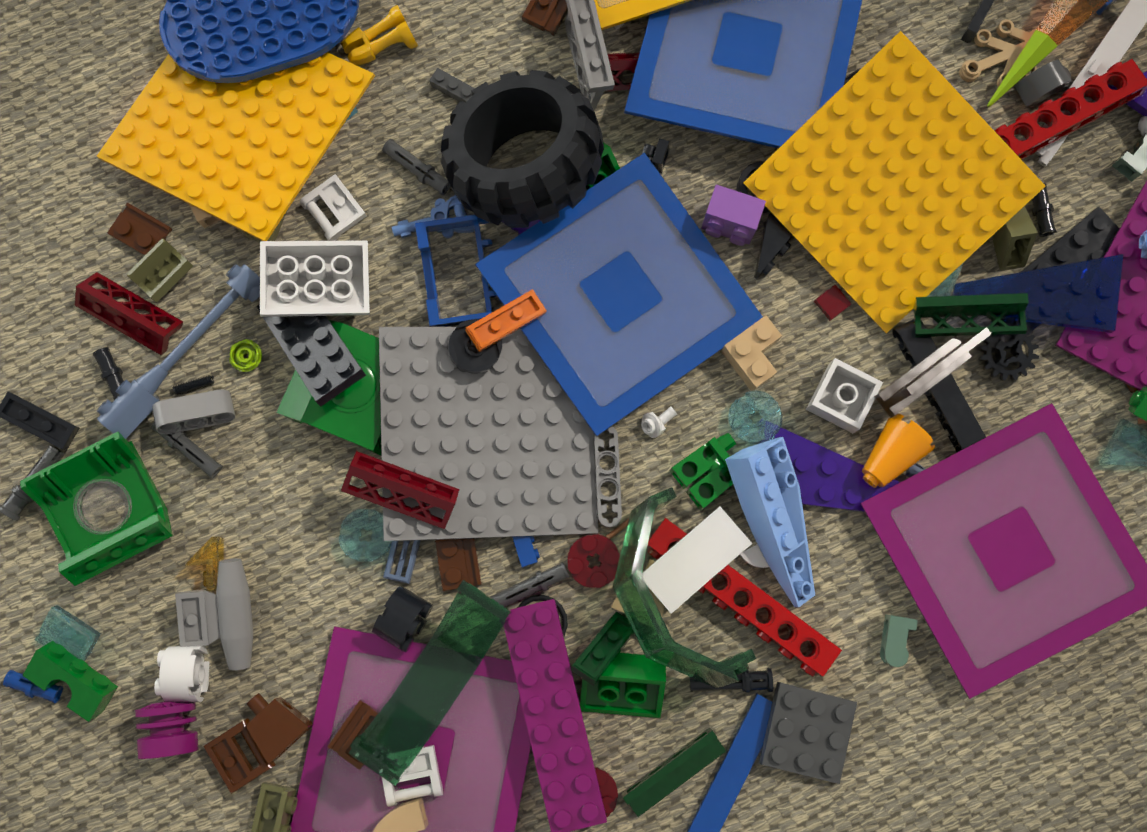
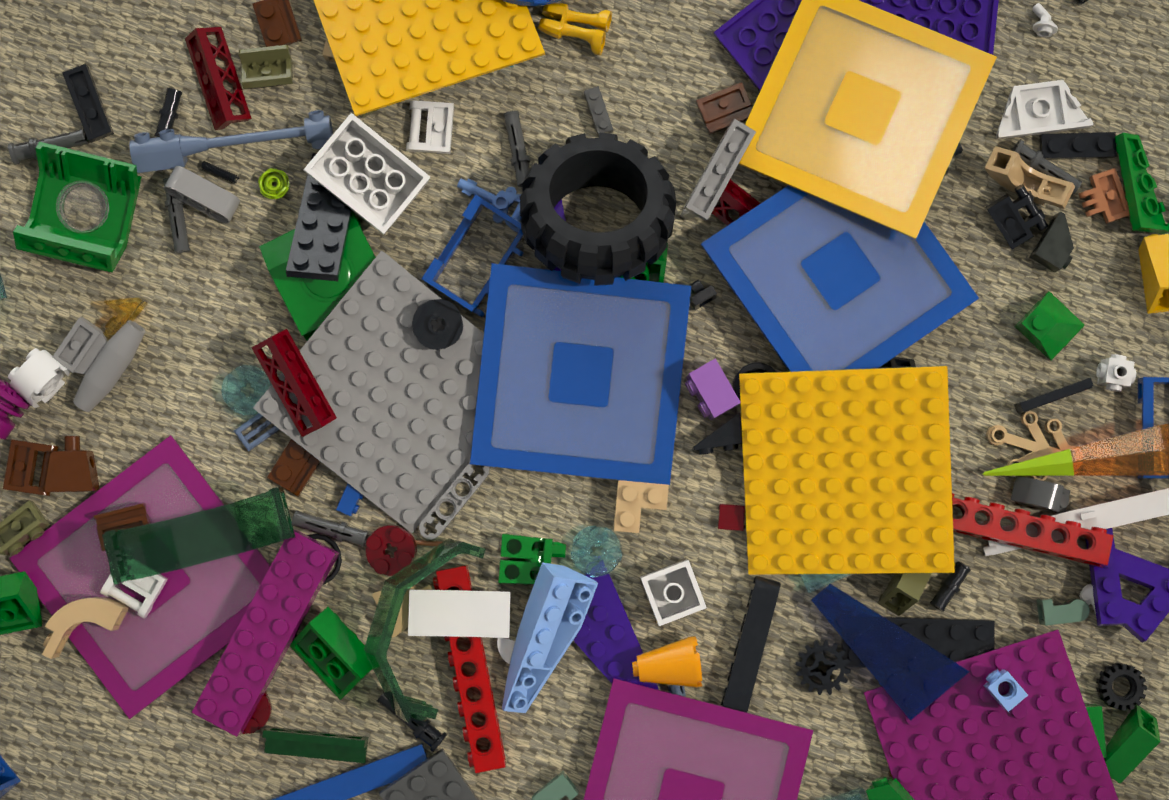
camera: 40 degrees right, 5 degrees up
(402, 618) = (221, 472): black brick -> none
(505, 320) = (475, 325): orange tile -> none
(603, 649) = (339, 618): dark green tile -> none
(656, 424) = (520, 492): white plate -> none
(928, 373) = (743, 630): fence -> none
(972, 306) = (818, 608): dark green fence -> none

